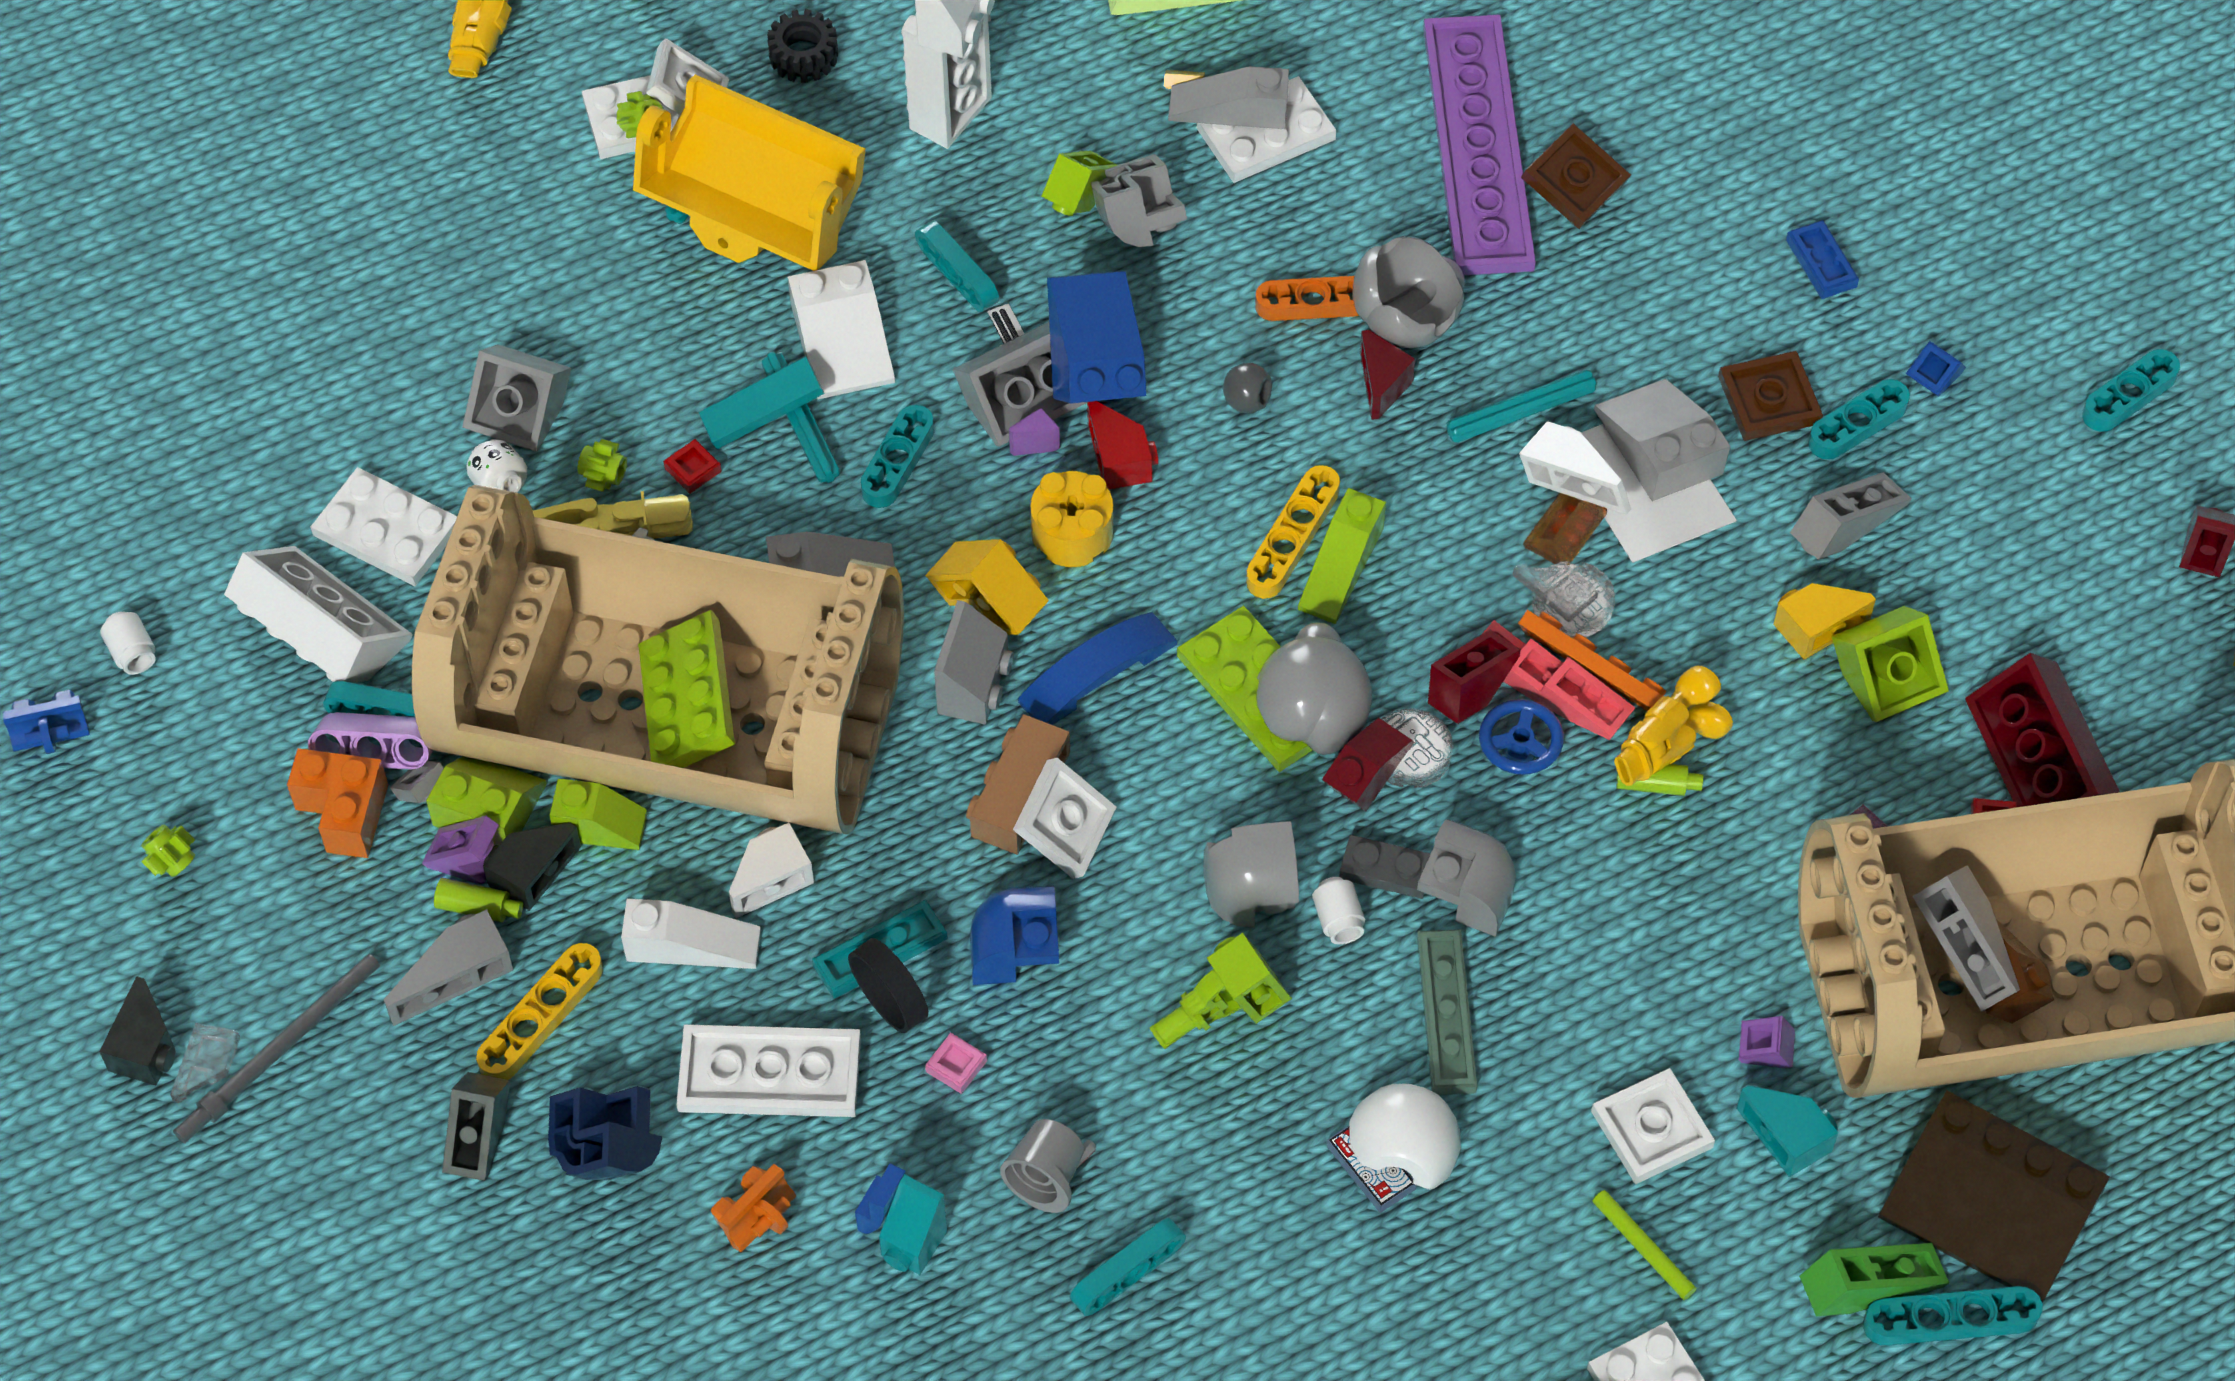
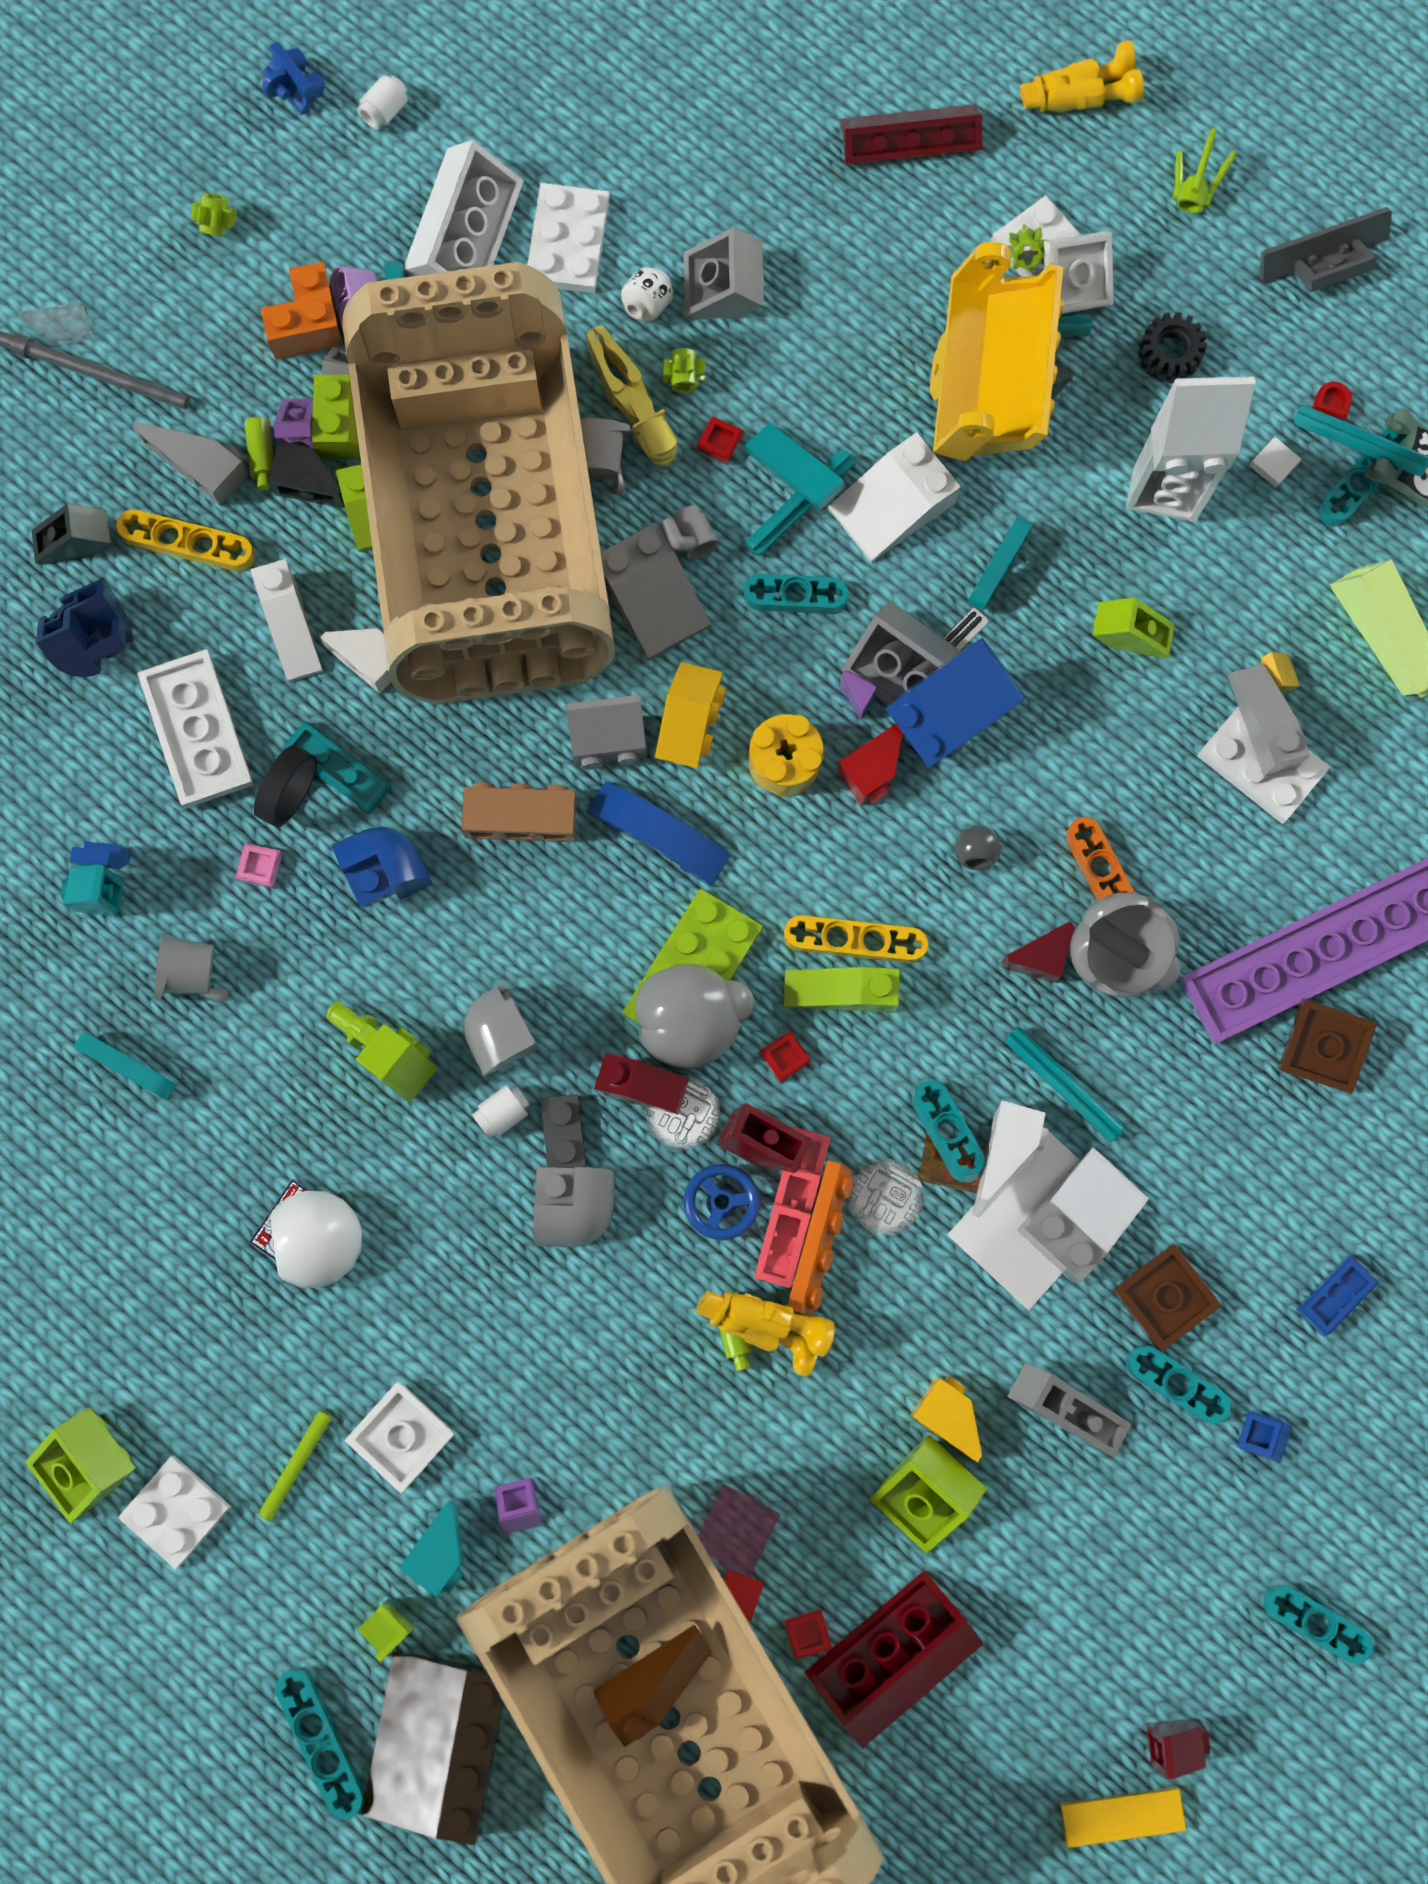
camera: 65 degrees right, 20 degrees up
(138, 1039) = (56, 269): pearl dark grey slope -> none
(447, 179) = (911, 134): none -> dark red panel
(686, 692) = (479, 523): lime plate -> none
(758, 1209) = (73, 771): orange hips -> none
(785, 516) = (690, 532): none -> light grey piece
(1064, 818) = (494, 861): white plate -> none
(1138, 200) = (1124, 681): light grey brick -> none
(1389, 637) = (785, 1056): none -> red tile
(1446, 1012) = (447, 1231): sand green tile -> none
(1559, 588) = (884, 1182): clear tile -> none
(1560, 518) = (926, 1113): none -> teal beam
(1855, 1205) = (385, 1629): none -> lime panel
(1856, 1277) = (325, 1667): bright green slope -> none
(1969, 936) = (651, 1653): light grey slope -> none

